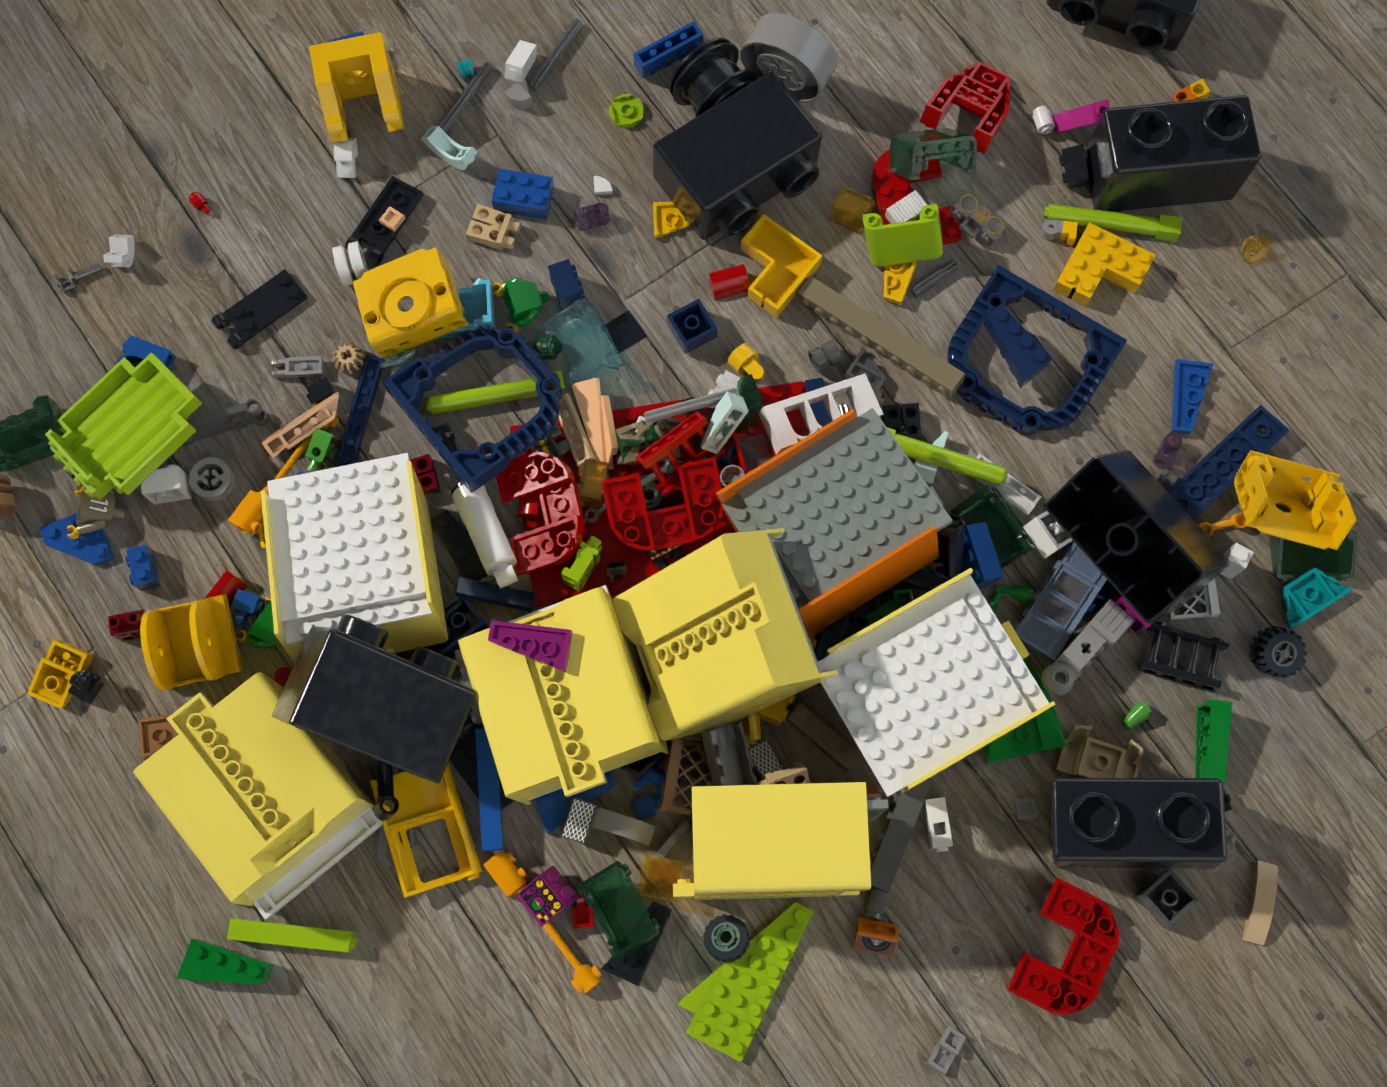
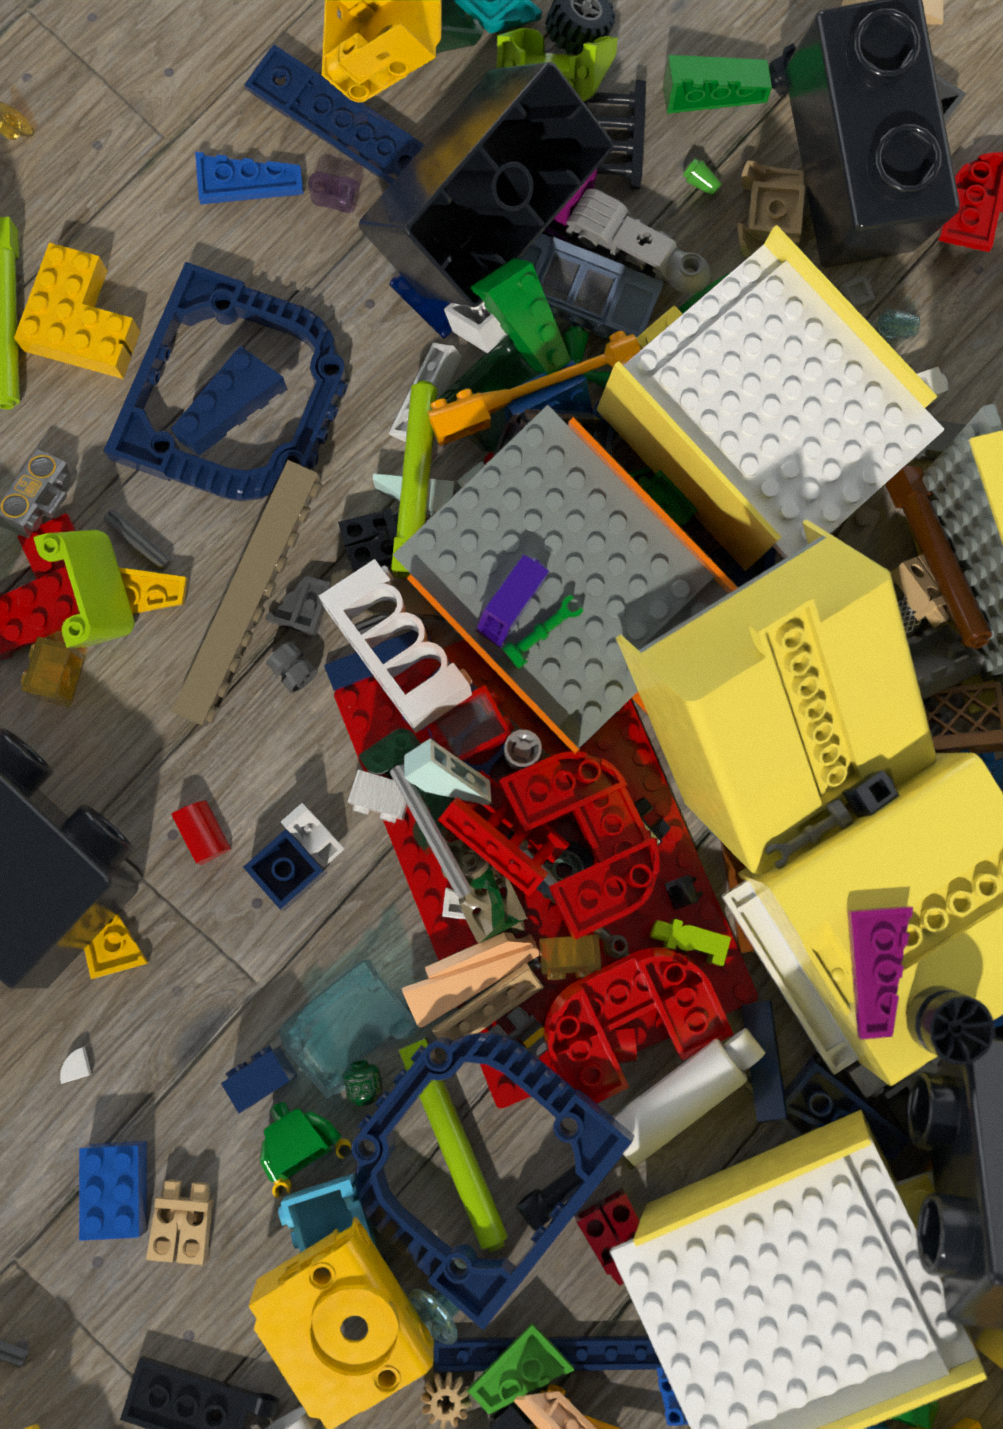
camera: 105 degrees left, 5 degrees up
(322, 449) = (606, 1396): bright green torso -> none
(353, 403) = (521, 1367): none -> bright green wing
(392, 219) = (198, 1397): light nougat tile -> none
(448, 149) = (56, 1336): light aqua arch -> none
(459, 545) = (699, 1140): black wing -> none
(485, 675) = (950, 1025): none -> black wheel
(591, 216) = (133, 1070): clear purple piece -> none
(625, 331) = (308, 972): black sticker -> none
(635, 651) = (838, 816): none -> dark grey piece
(638, 672) = (871, 793): none -> black brick
(711, 348) = (312, 835): none -> white brick
(744, 360) = (323, 782): yellow piece -> none
(786, 264) = (152, 751): yellow piece -> none
(800, 487) = (540, 631): none -> green piece
(825, 471) = (511, 600): none -> dark purple slope
(906, 209) = (43, 590): white brick -> none
(976, 499) = (473, 411): none -> light orange bar
(994, 830) = (898, 324): none -> clear light blue brick
(1038, 537) = (524, 314): none -> green wedge
(1060, 230) = (30, 379): leg -> none
(1167, 479) = (374, 186): dark grey wheel -> none
(1236, 520) = (410, 95): light orange bar -> none
(1237, 617) = (581, 71): none -> lime windscreen
(1239, 559) = (470, 73): white brick -> none

